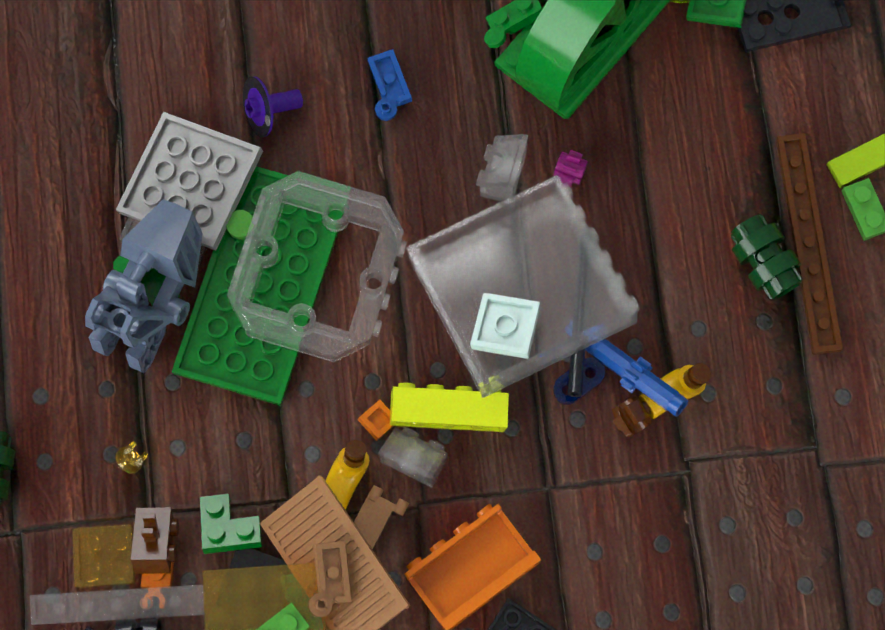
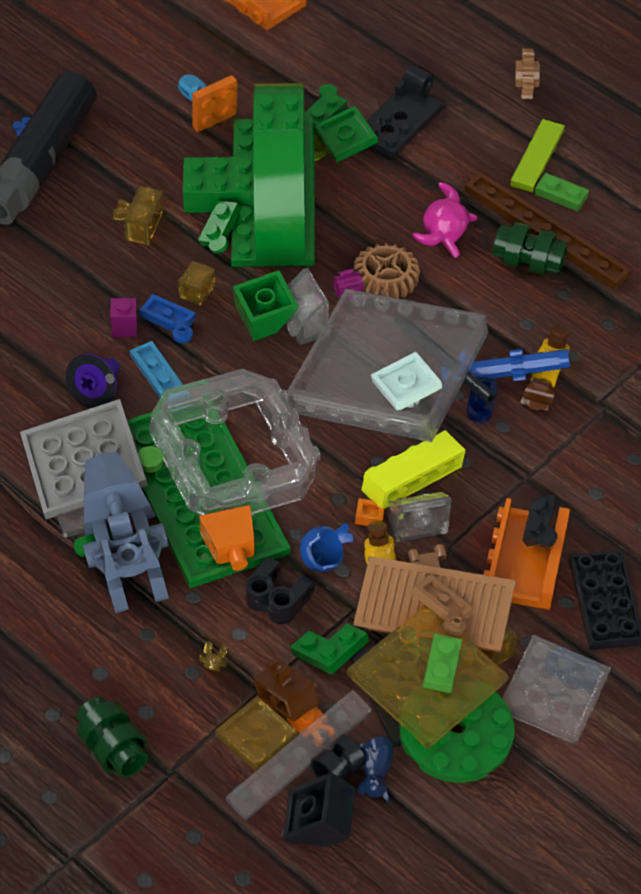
camera: 45 degrees left, 25 degrees down
(228, 437) = (272, 596): none -> black piece
(233, 358) = (229, 536): none -> orange torso
(305, 427) = (323, 548): none -> blue hat
(332, 135) = (154, 368): none -> dark azure tile
(347, 56) = (123, 317): none -> magenta brick
(442, 64) = (196, 283): none -> clear yellow brick
(472, 136) = (264, 304): none -> green slope
(506, 552) = (541, 522): none -> black hinge
(606, 183) = (387, 270): none -> medium nougat gear
(719, 166) = (445, 221): none -> dark pink piece

